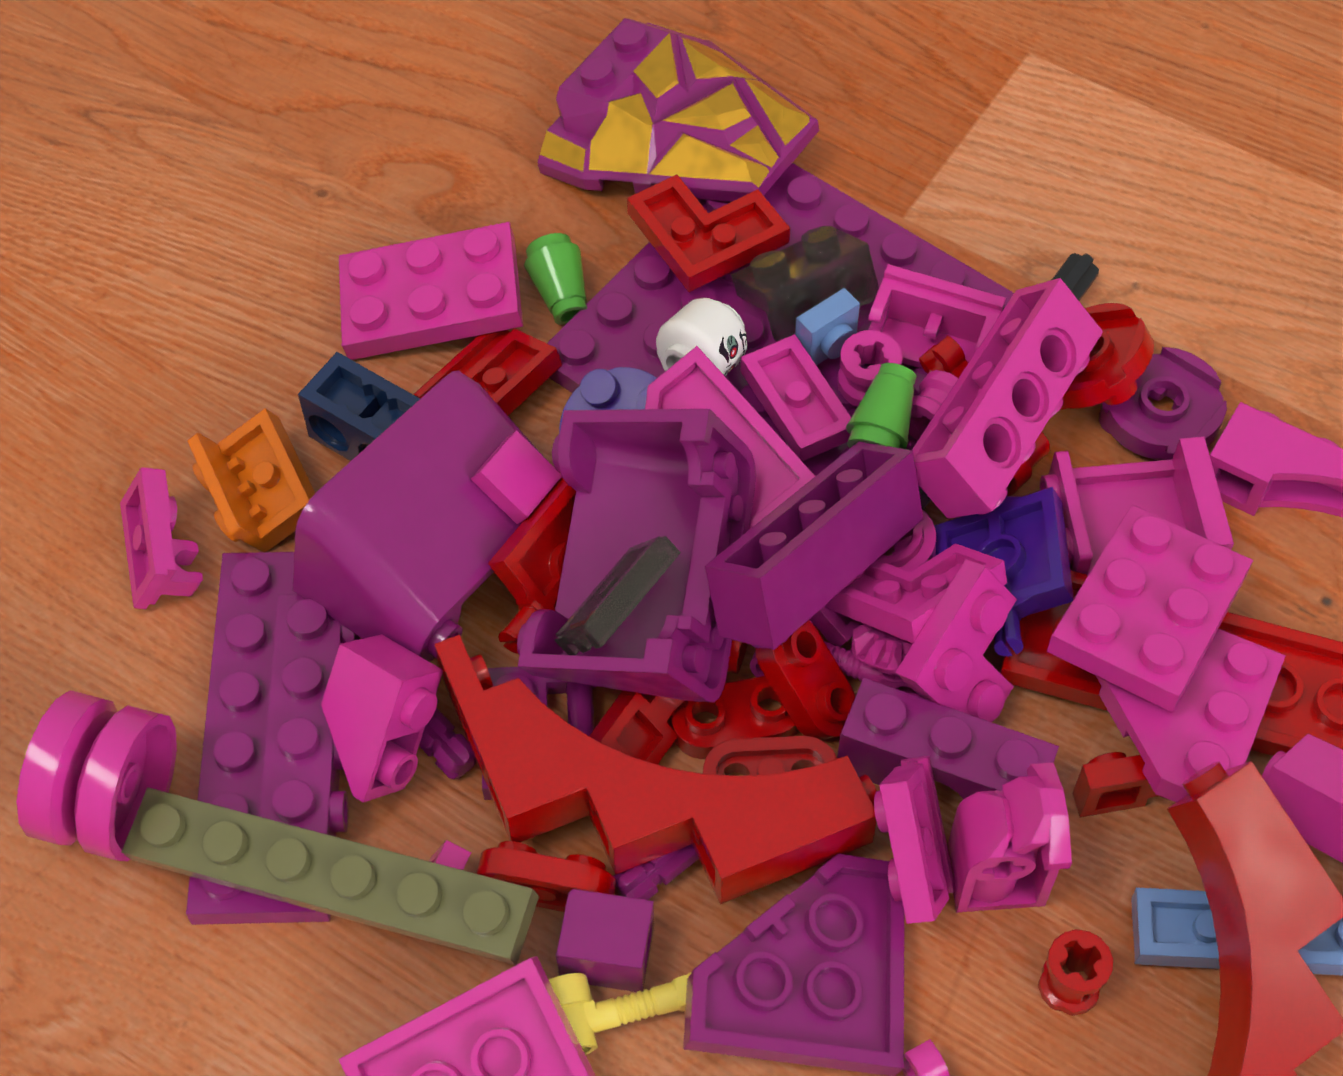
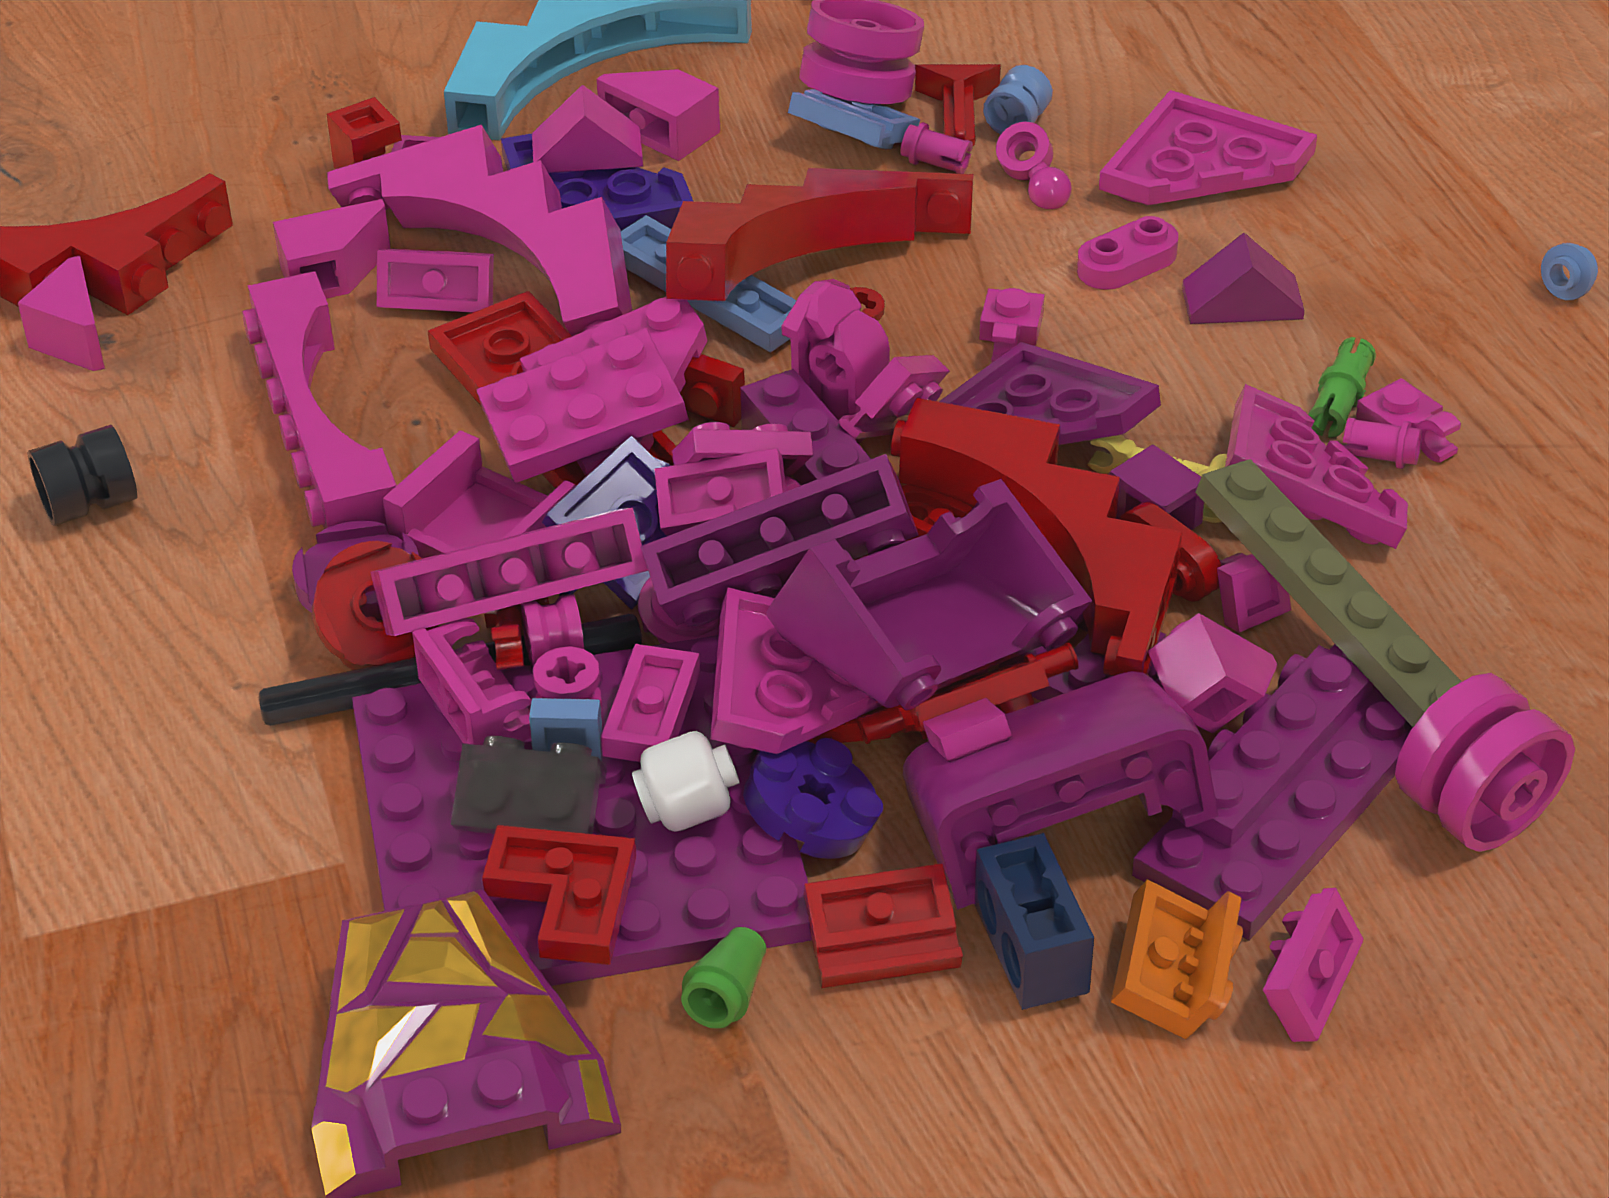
camera: 140 degrees left, 15 degrees down
(429, 291) = (861, 1041): dark pink plate -> none
(616, 595) = (921, 596): clear smoke tile -> none
(885, 409) = (614, 618): bright green cone -> none

